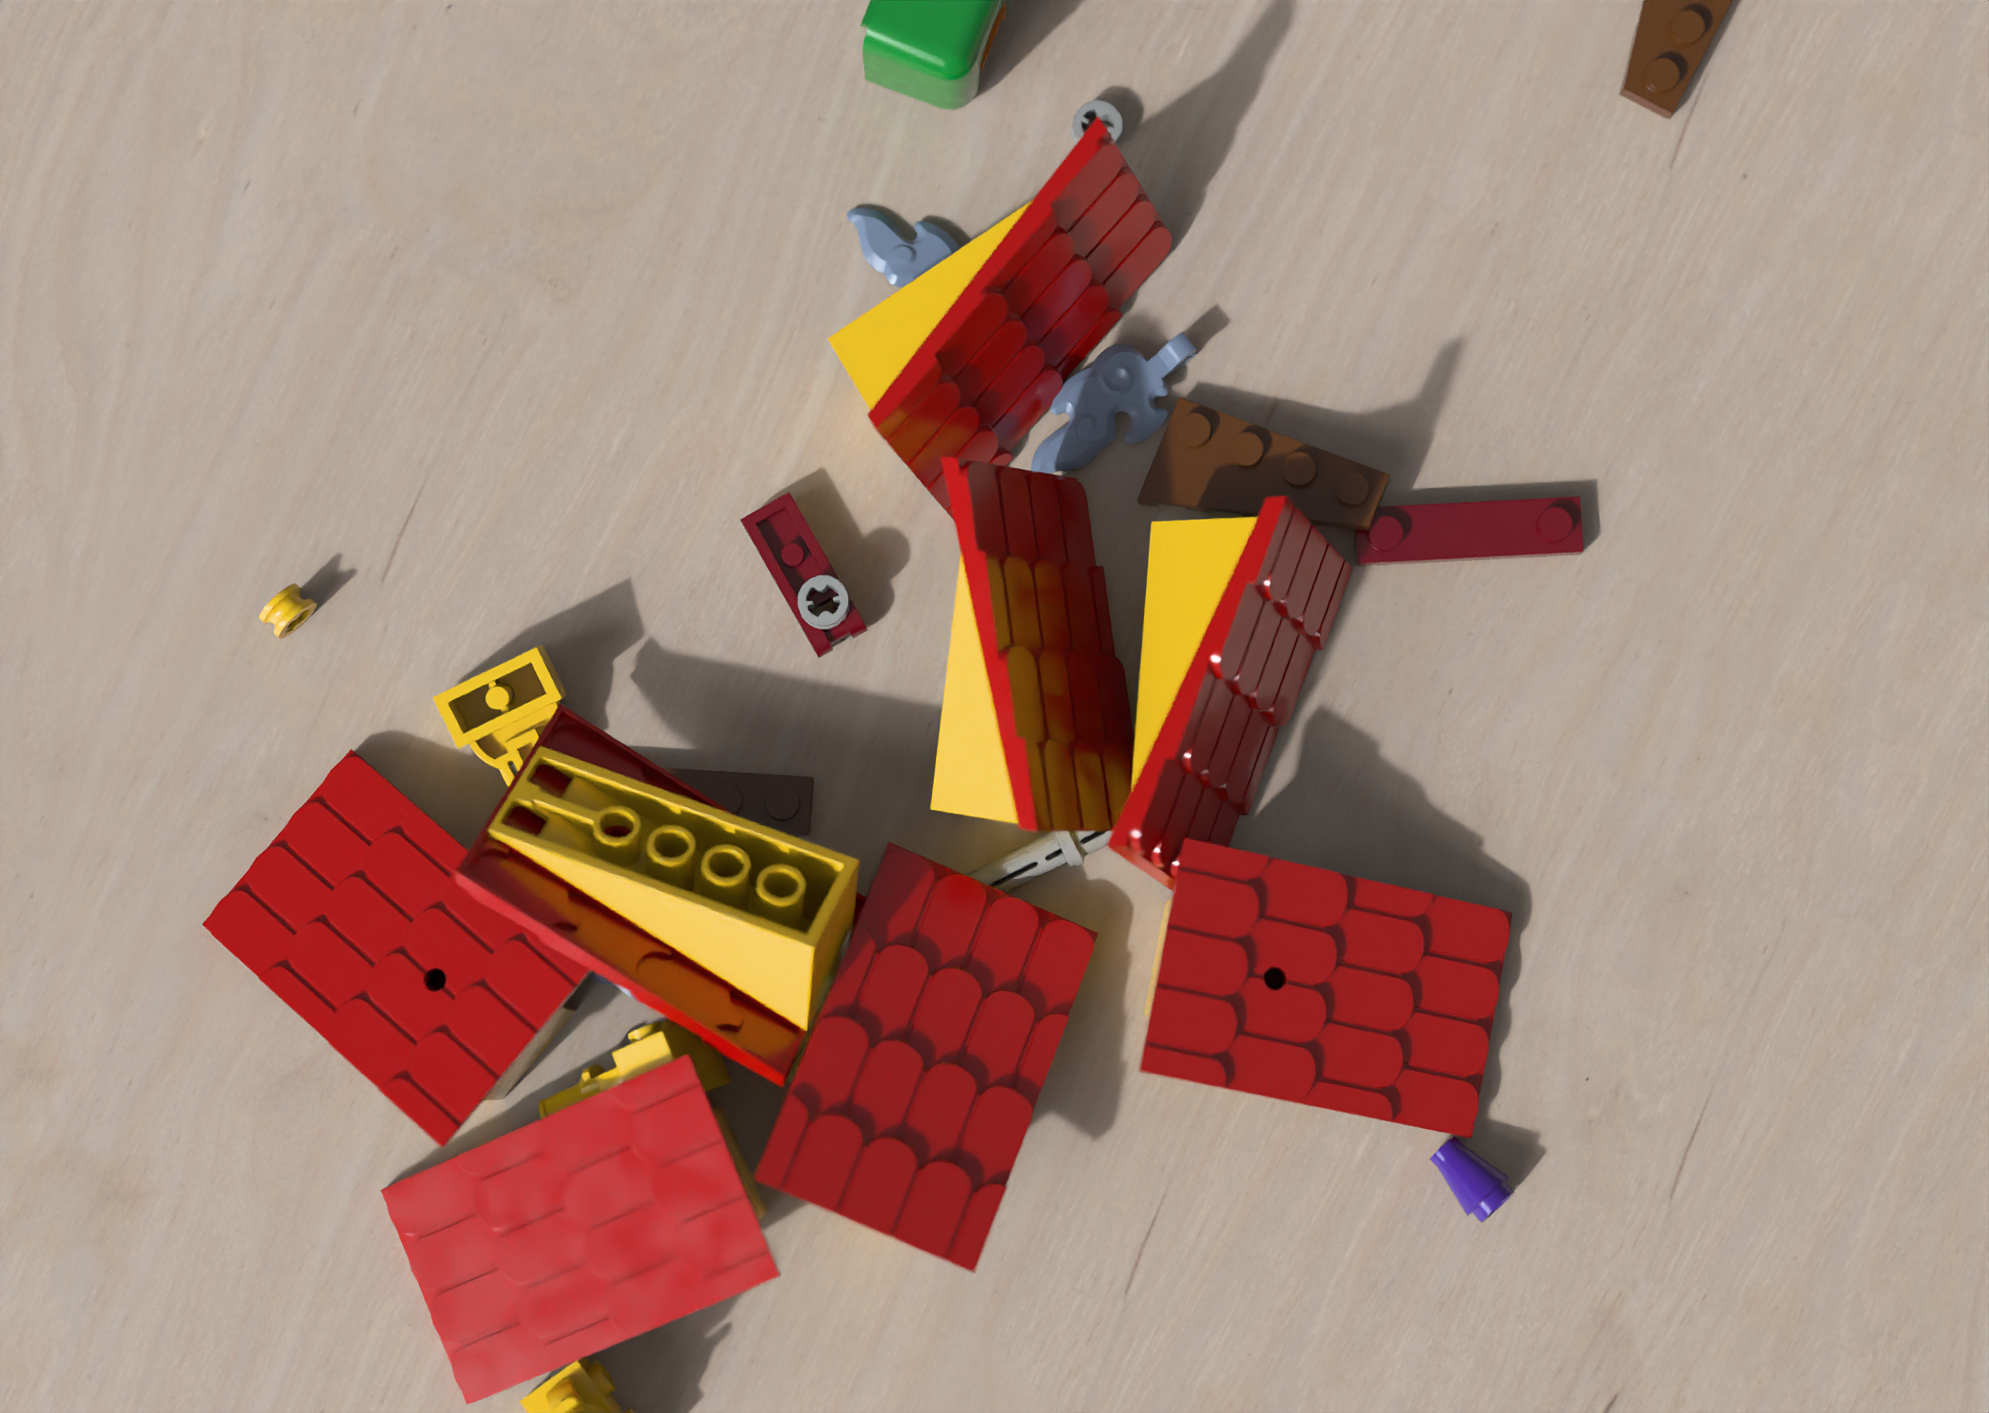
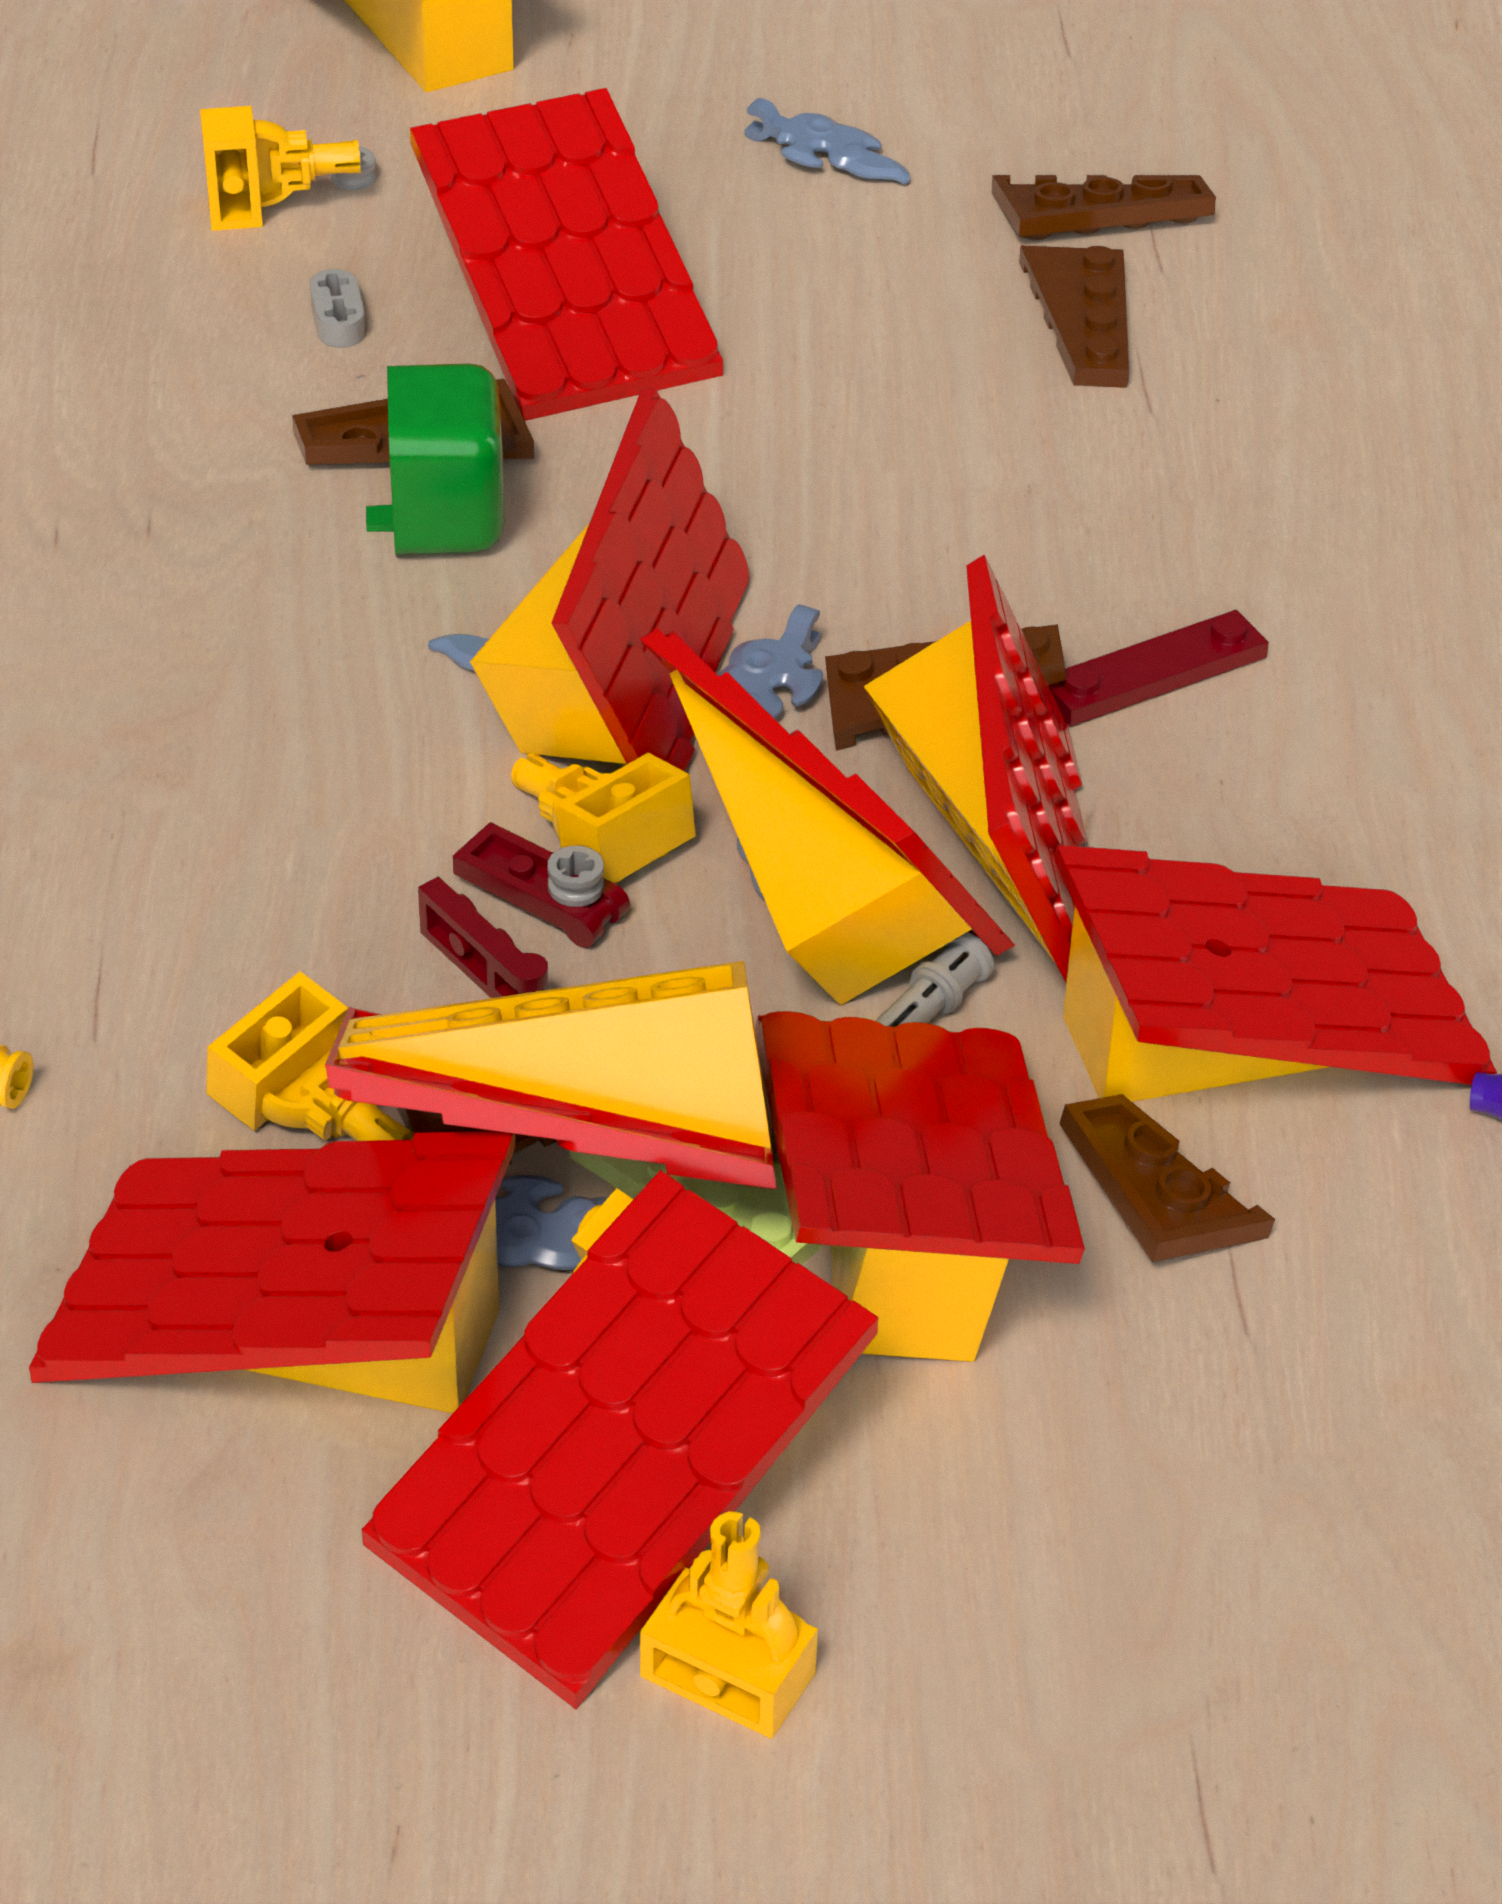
camera: 25 degrees left, 40 degrees down
(721, 643) = (476, 945): none -> dark red plate
(891, 533) = (620, 814): none -> yellow brick
(1131, 1132) = (1154, 1187): none -> reddish brown wing

